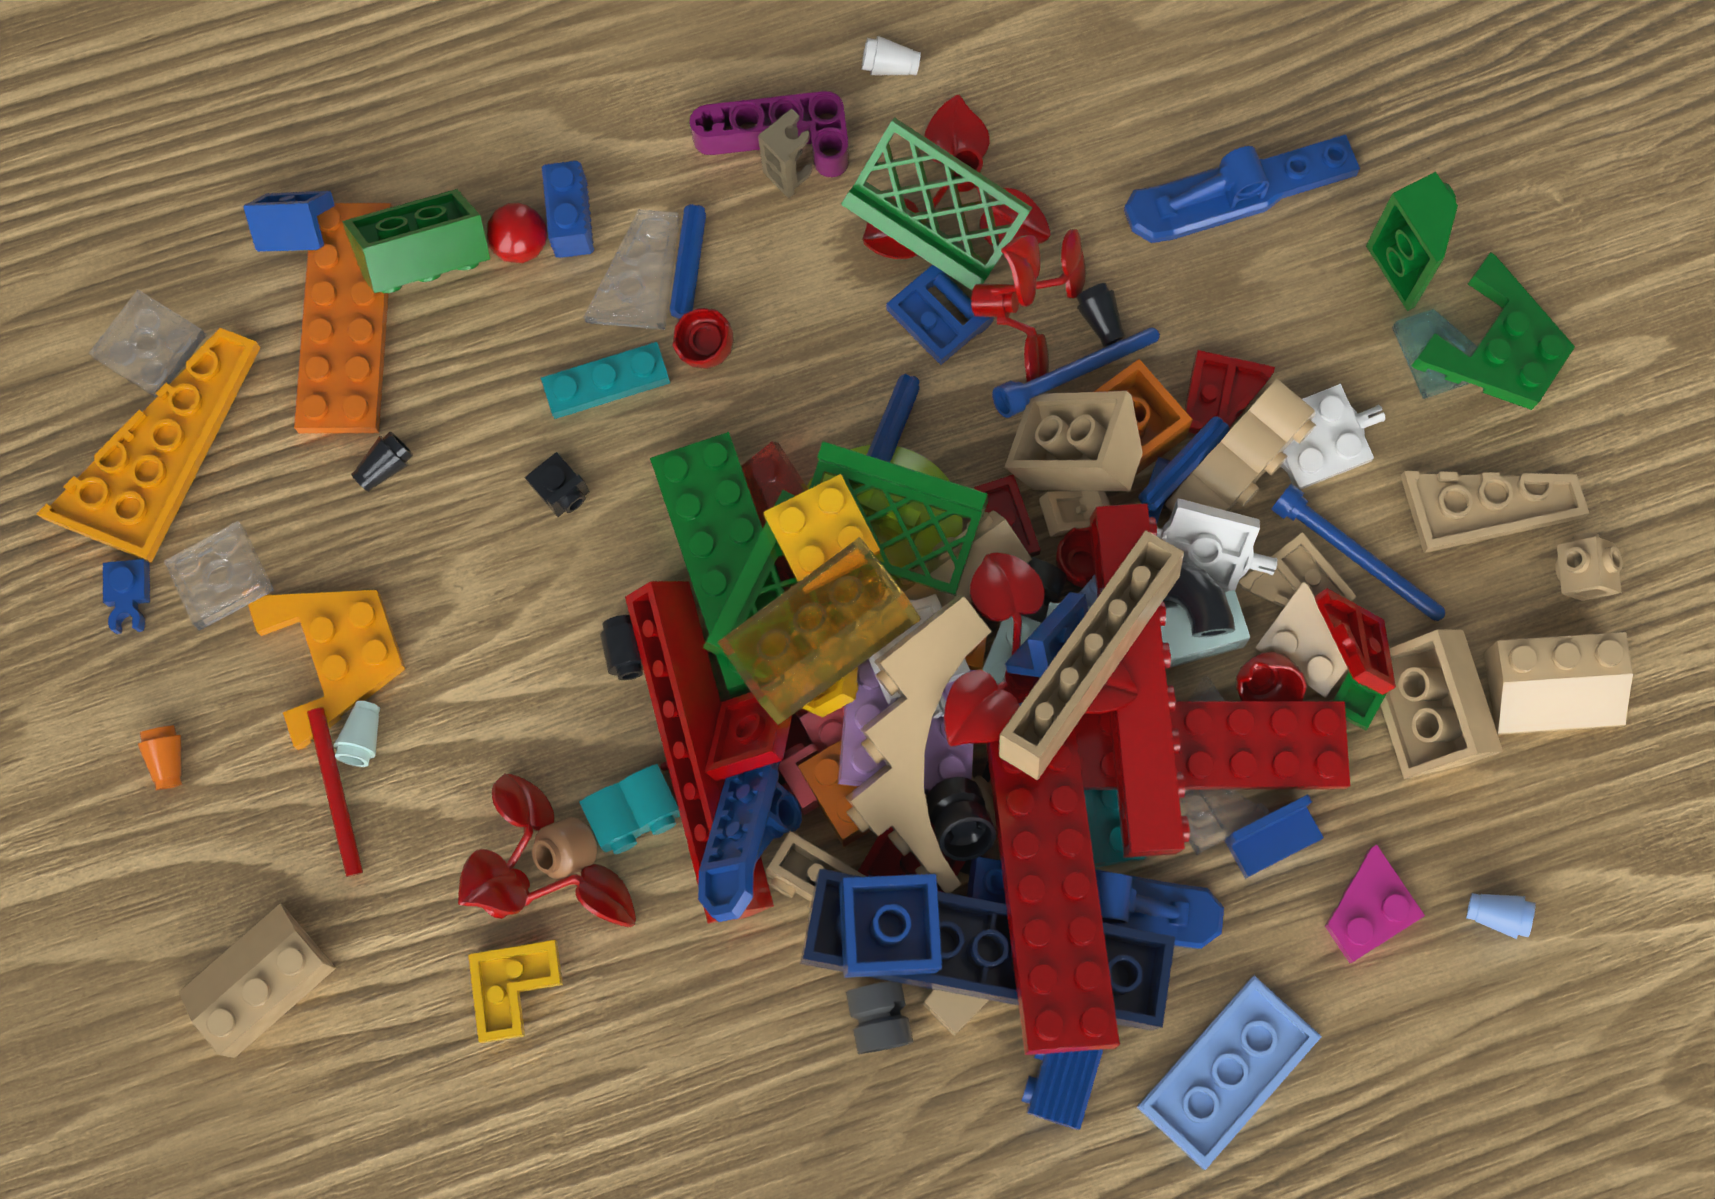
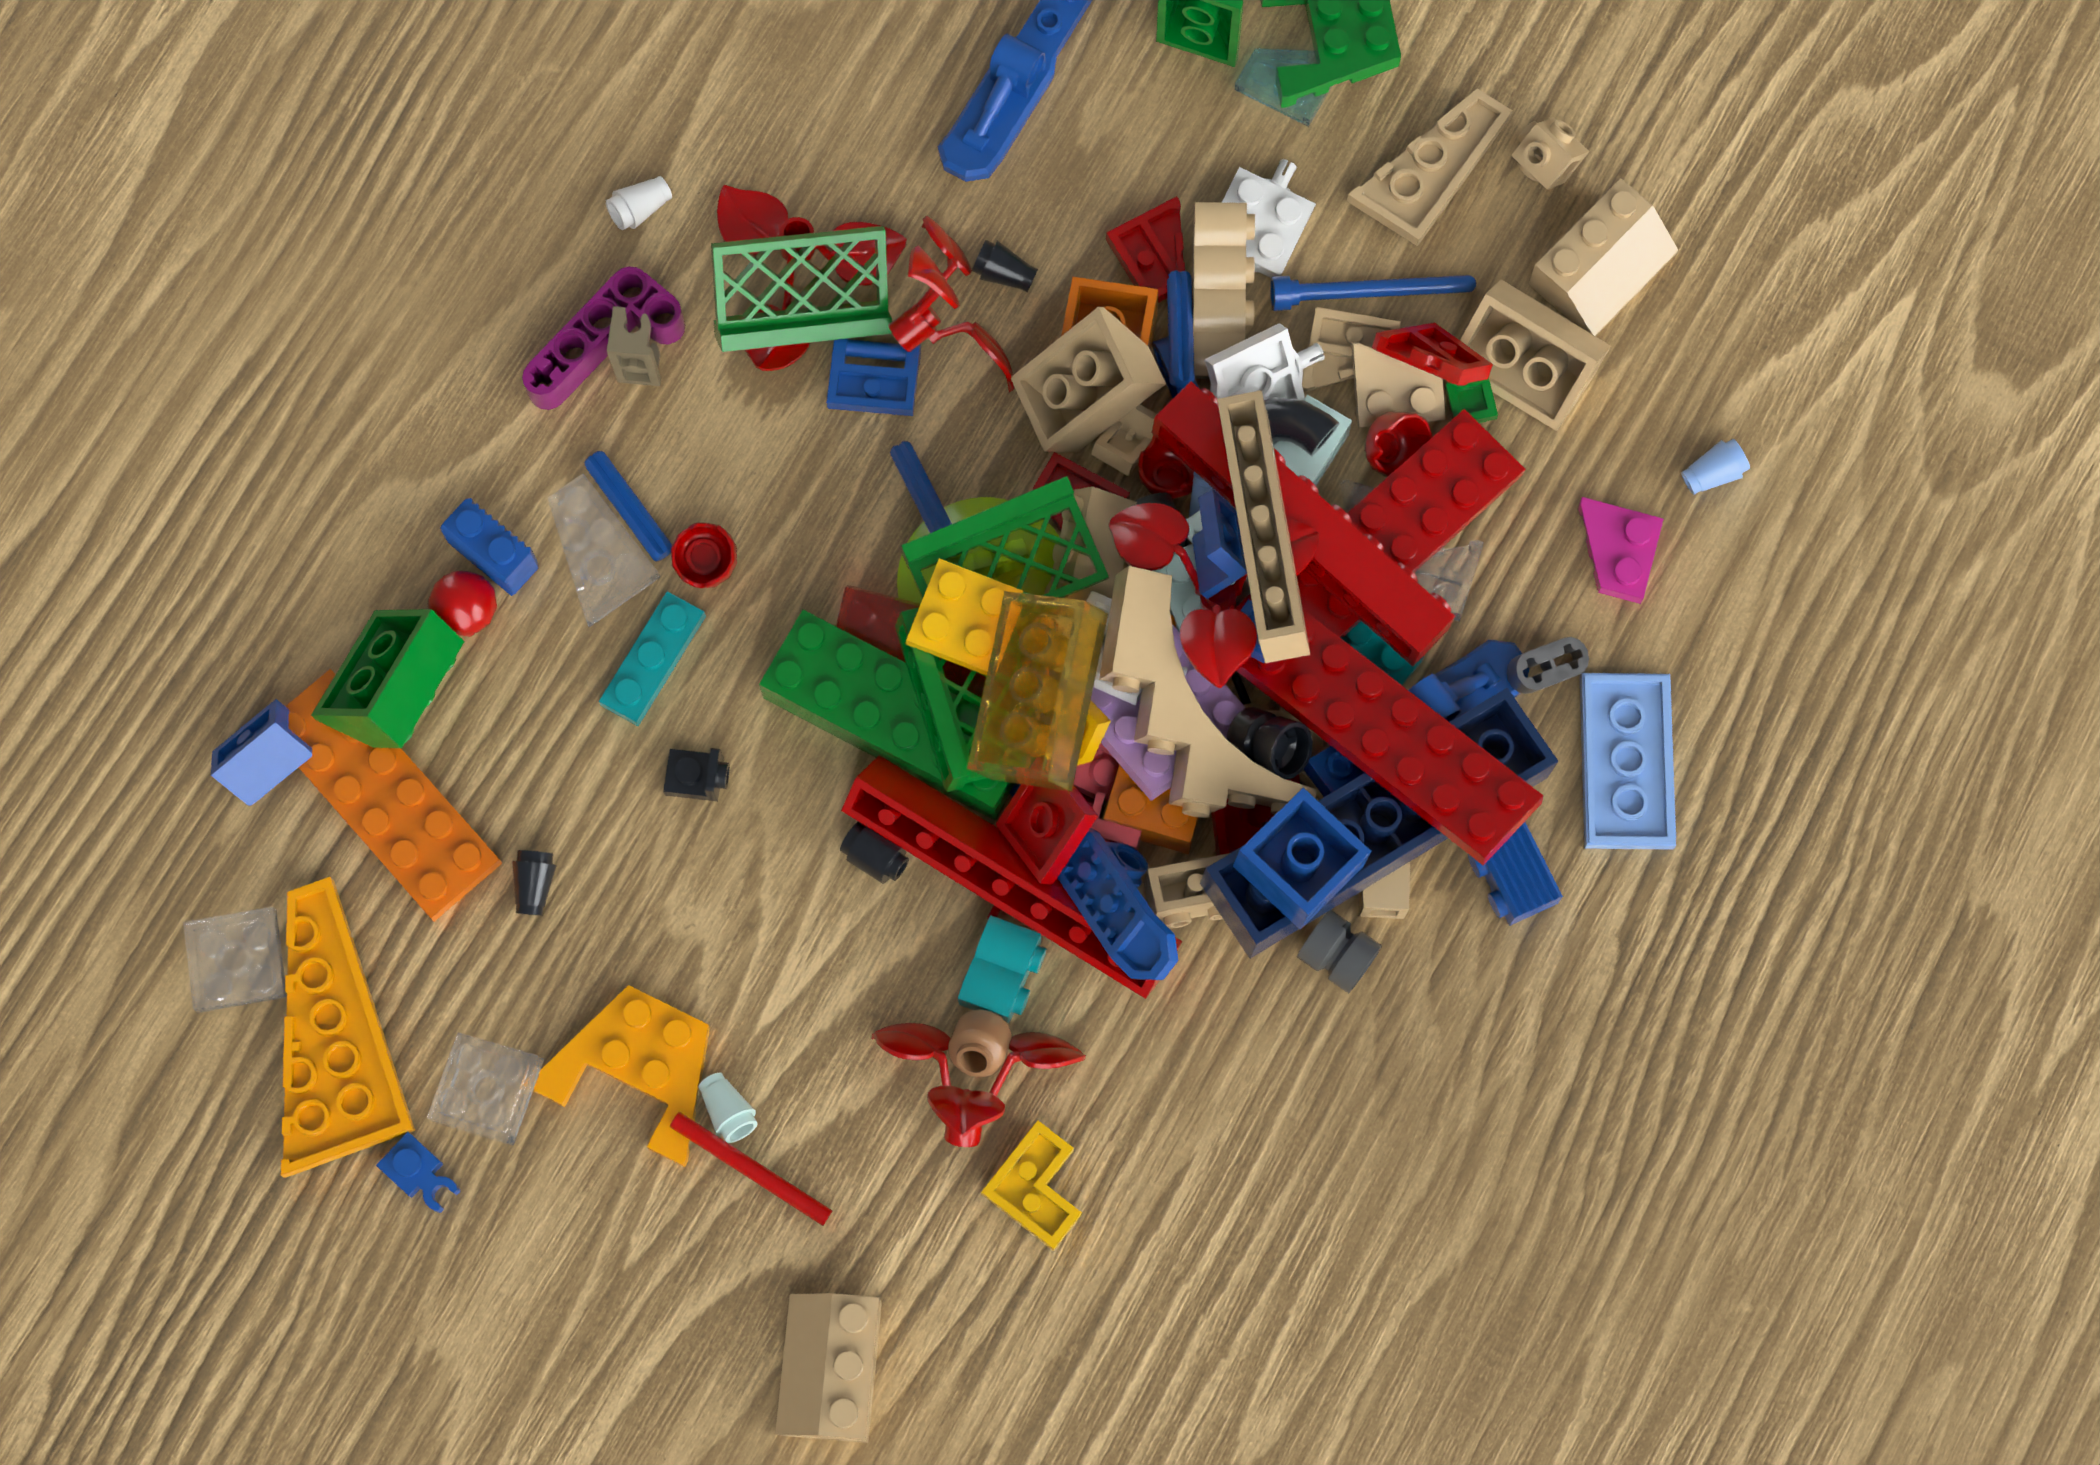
camera: 45 degrees left, 0 degrees up
(162, 756) = (581, 1268): orange cone -> none
(1013, 397) = (1004, 389): blue piece -> none
(1235, 937) = (1550, 673): none -> flat silver beam
(1274, 837) = (1503, 558): blue panel -> none

